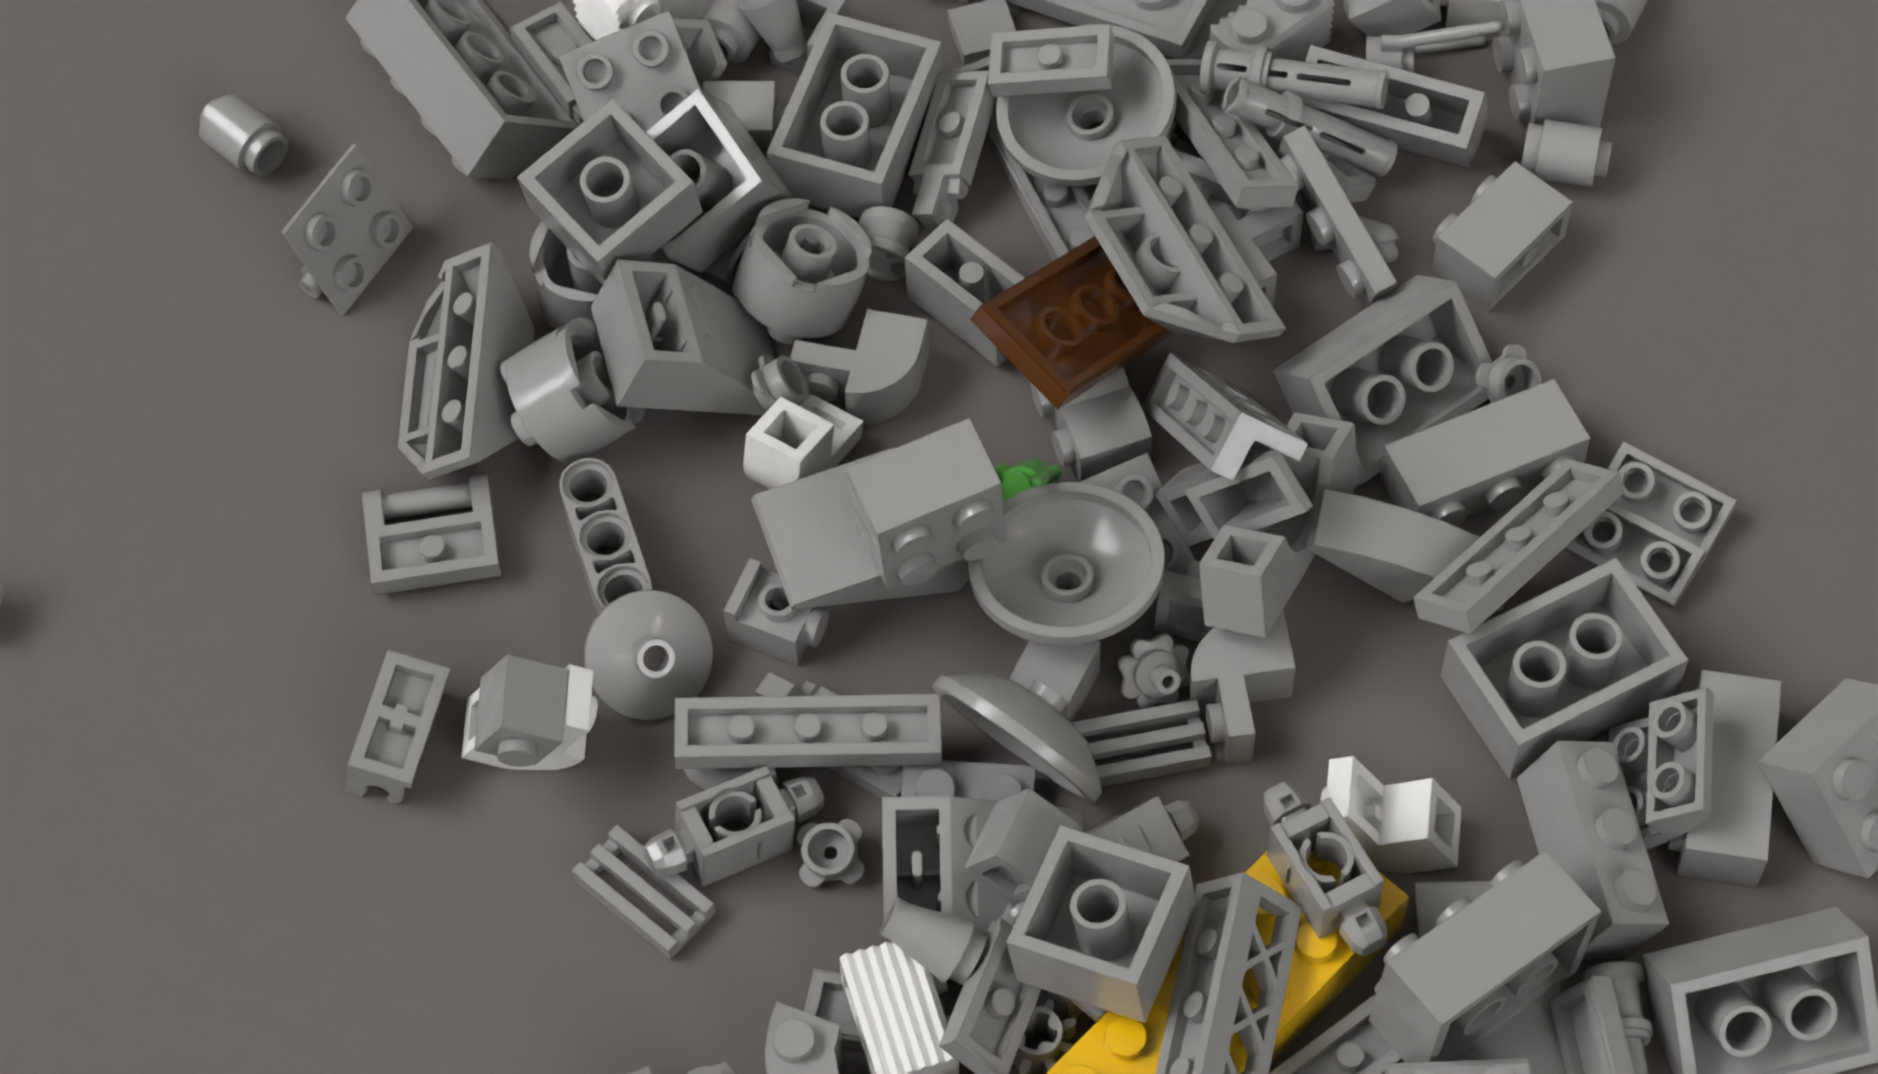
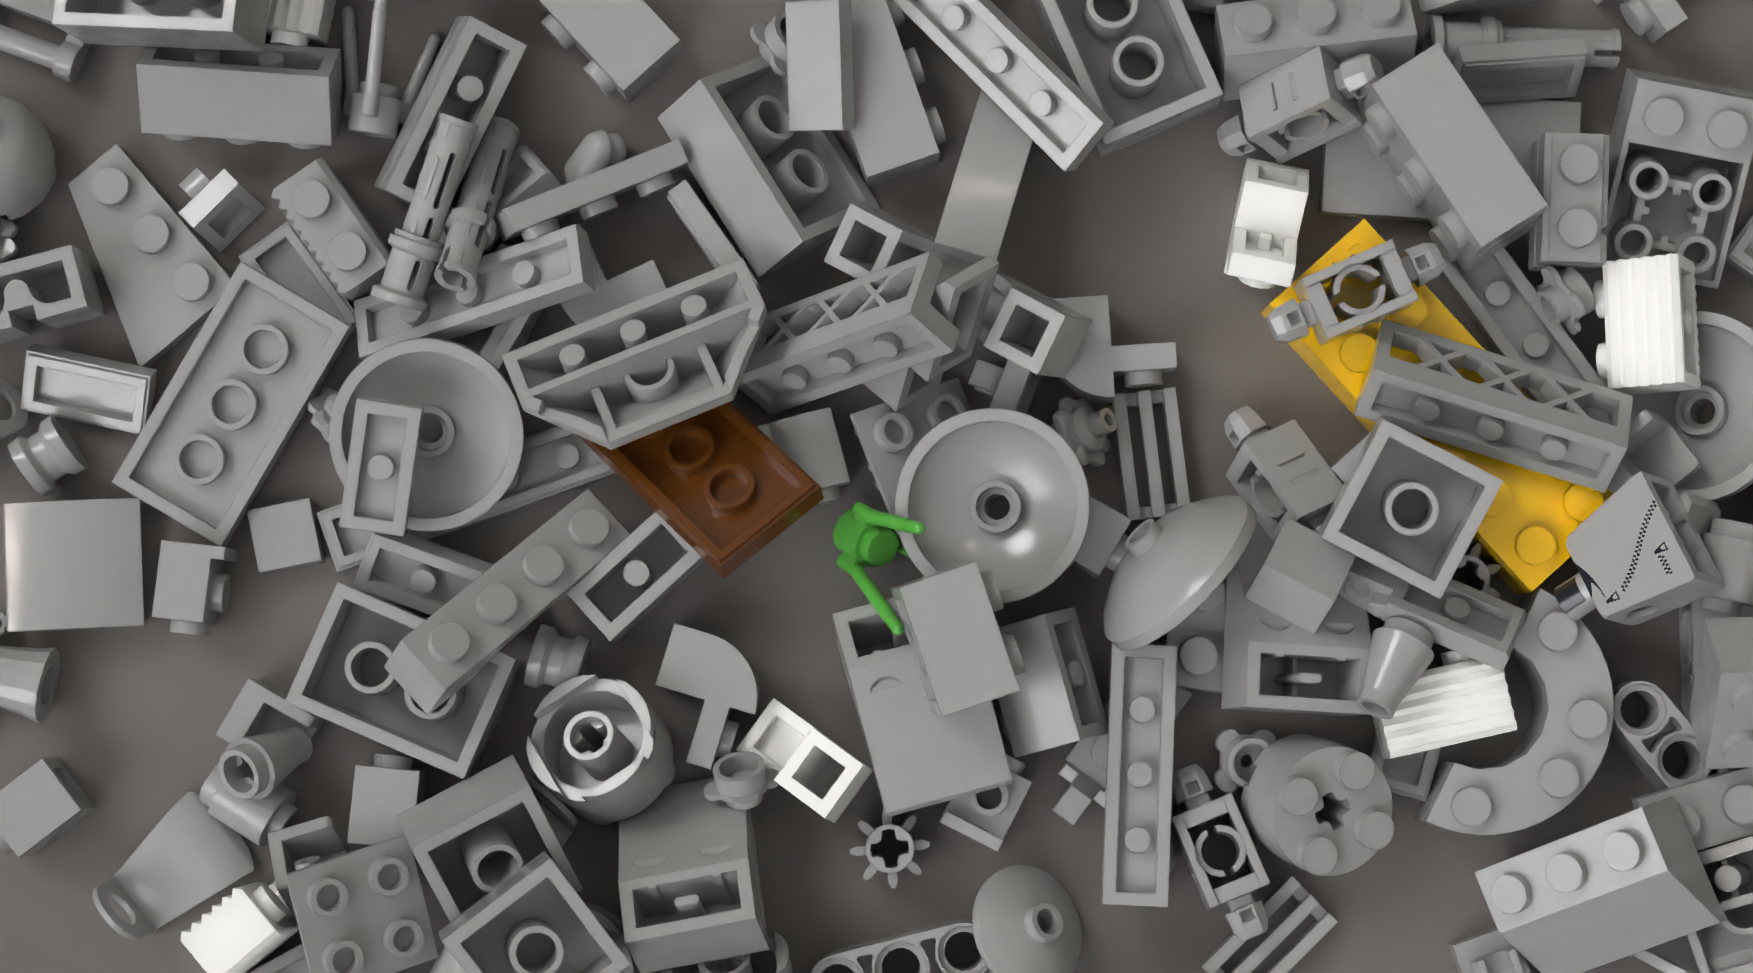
camera: 85 degrees left, 25 degrees up
(727, 548) = (904, 858): none -> light grey gear
(751, 891) = (1318, 804): none -> light grey brick
(897, 644) = (1057, 691): none -> light grey brick
(899, 123) = (503, 601): none -> light grey arch
(1301, 331) = (702, 226): none -> light grey tile
(1488, 391) = (820, 65): none -> light grey tile
(1518, 822) = (1299, 105): none -> light grey piece

